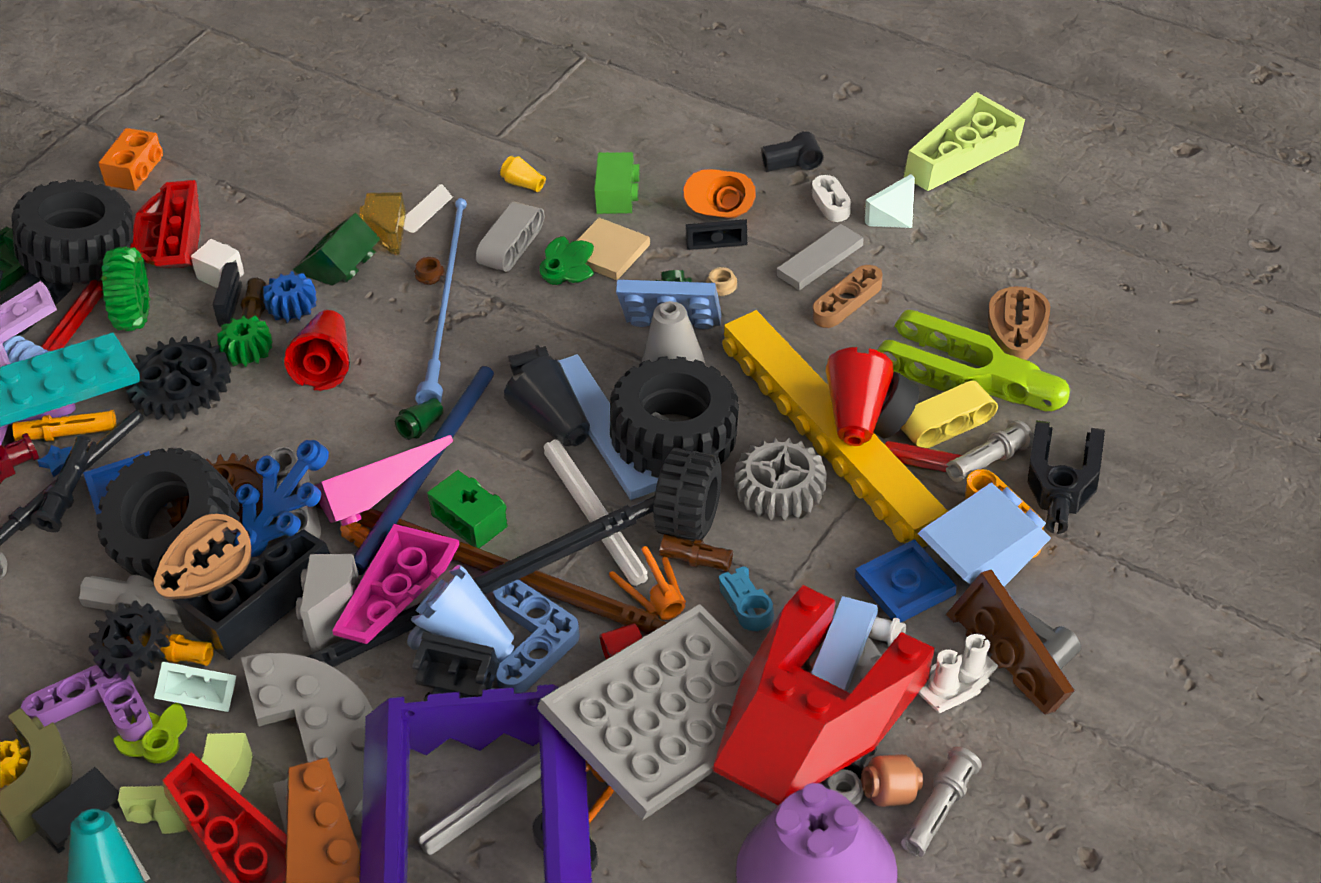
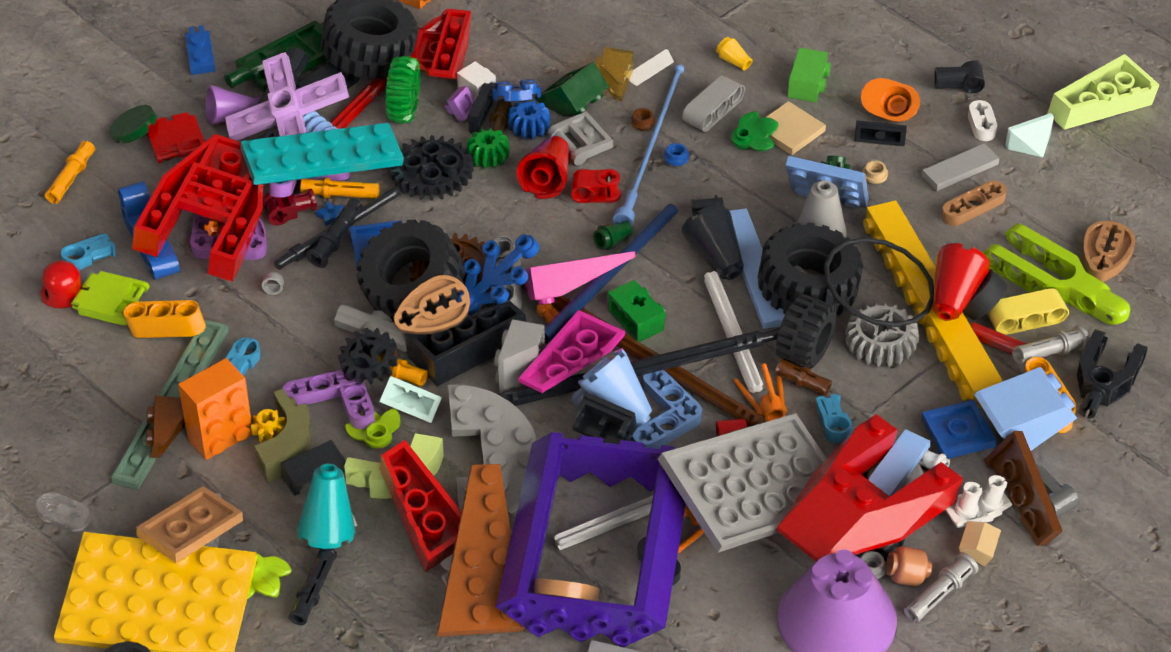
camera: 10 degrees right, 0 degrees up
(201, 292) = (460, 103): none -> medium lavender tile
(268, 266) = (516, 92): none -> blue plate
(364, 300) = (587, 133): none -> light grey plate
(383, 362) = (592, 186): none -> red piece
(478, 305) = (676, 154): none -> blue plate
(780, 464) = (867, 318): none -> black piece
(973, 726) = (979, 541): none -> tan piece

